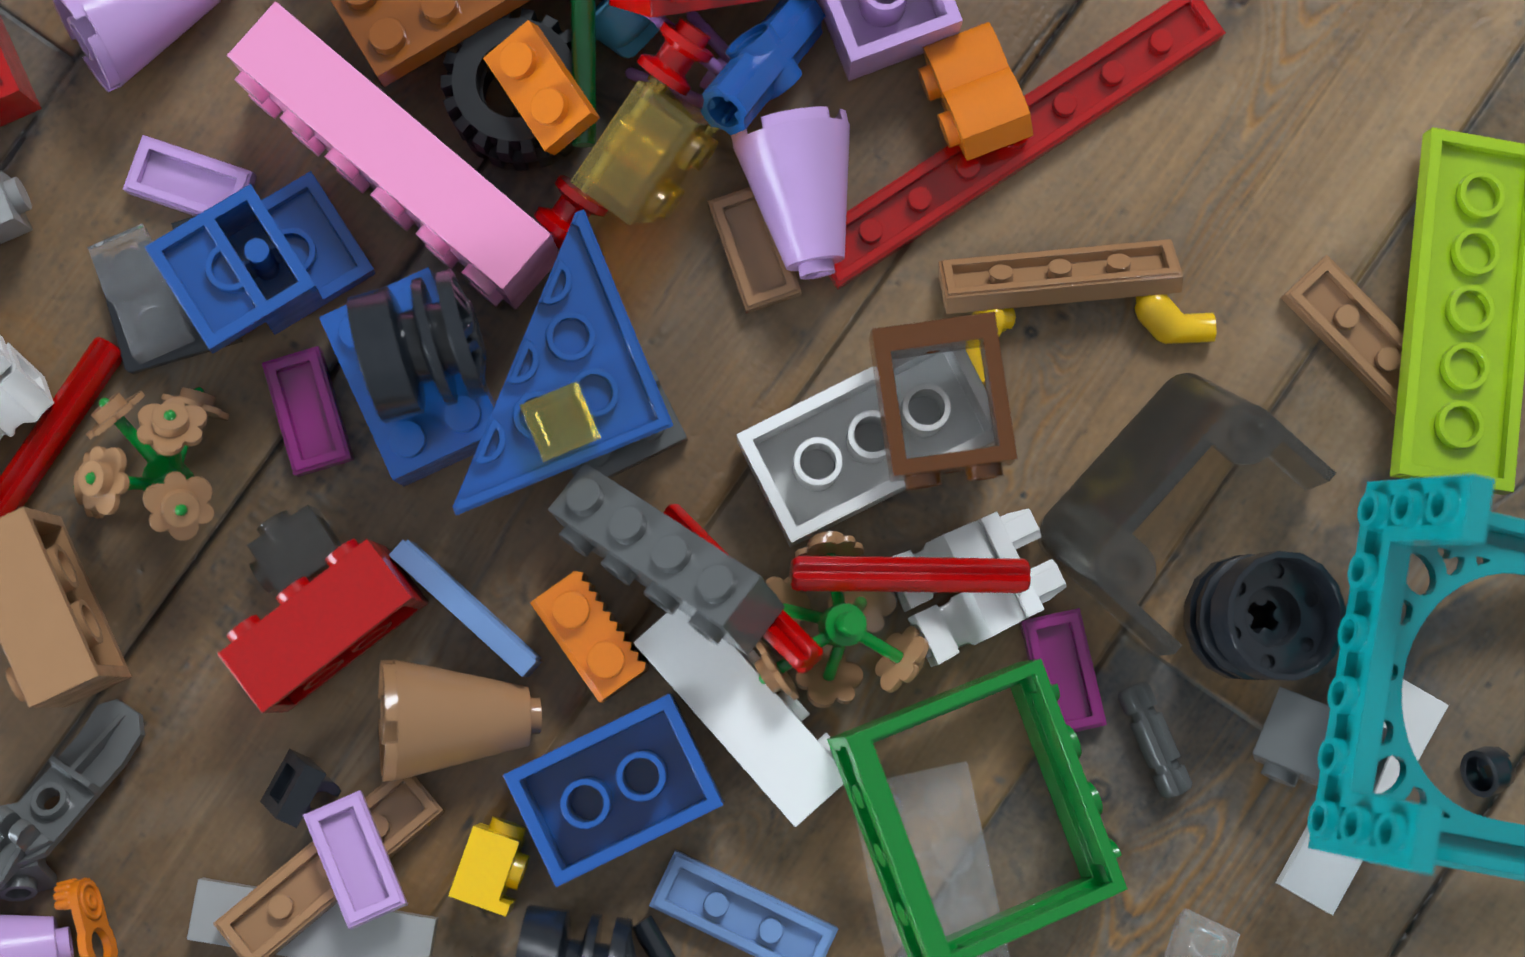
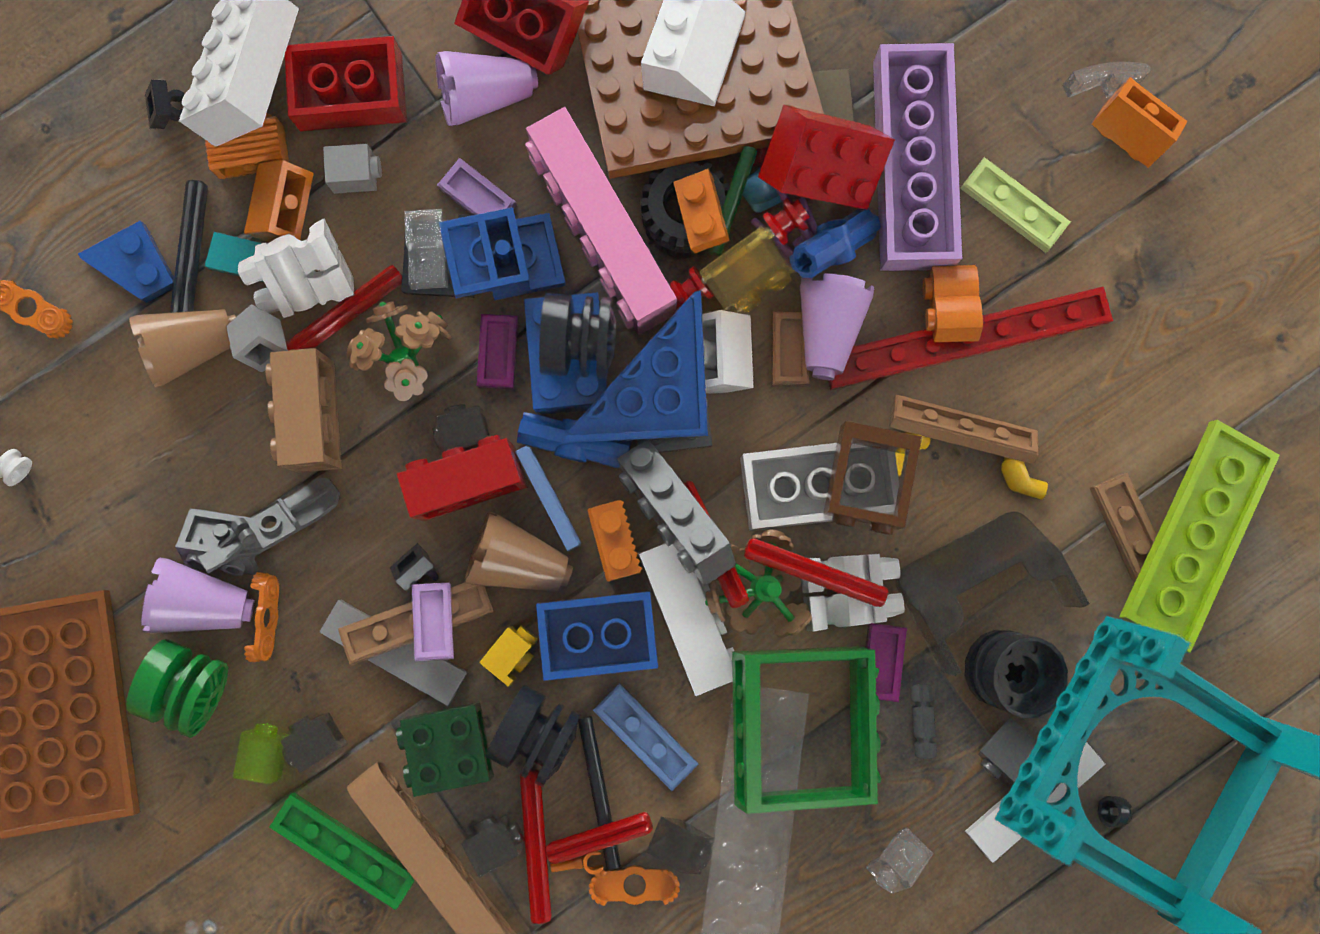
camera: 20 degrees right, 0 degrees up
(429, 511) = (547, 435): none -> blue piece
(559, 421) = (642, 409): clear yellow tile -> none
(658, 287) = (727, 351): none -> white slope

